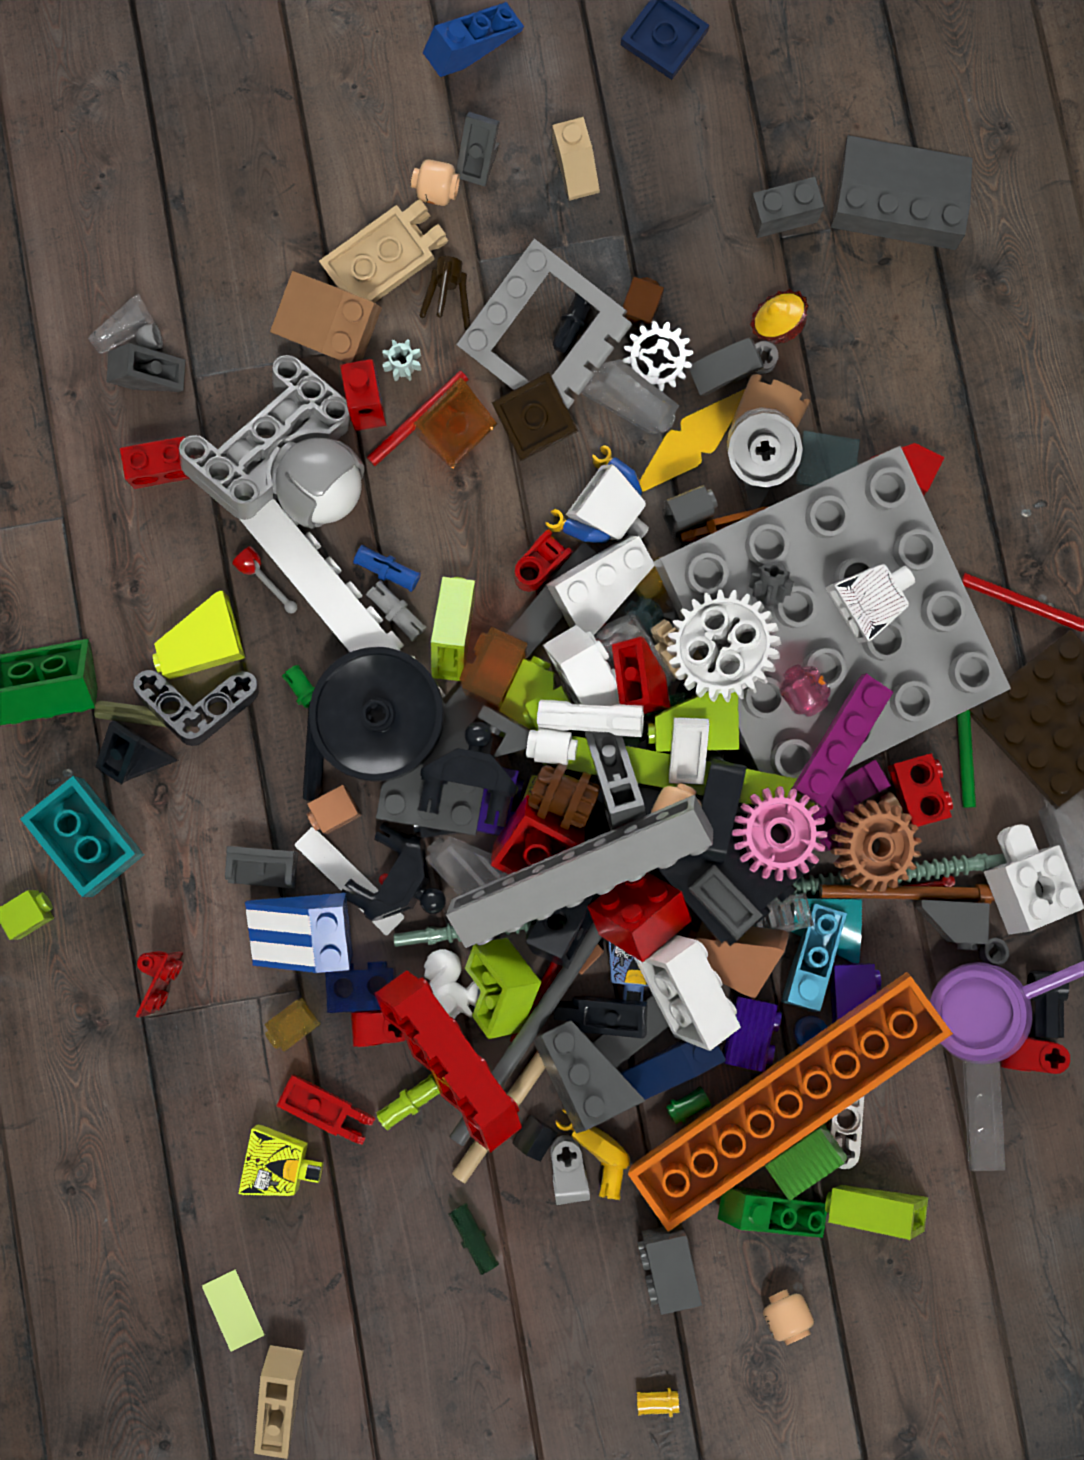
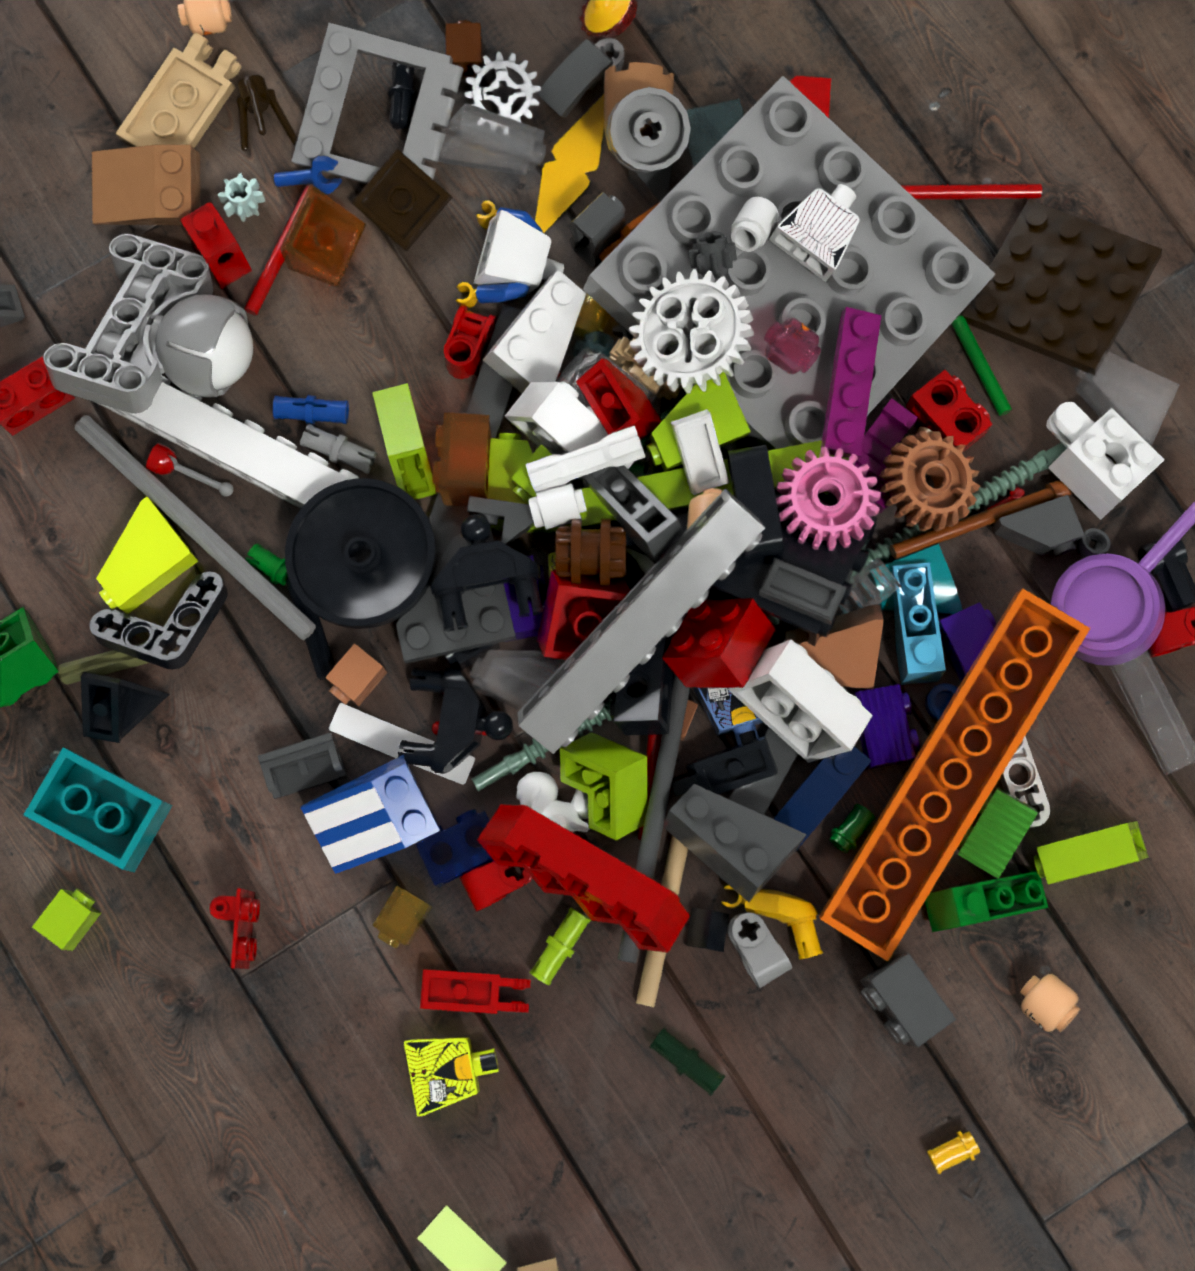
camera: 25 degrees left, 5 degrees down
(252, 631) = (195, 528): none -> light grey axle
(469, 365) = (311, 176): none -> blue bar
(817, 571) = (754, 224): none -> white brick

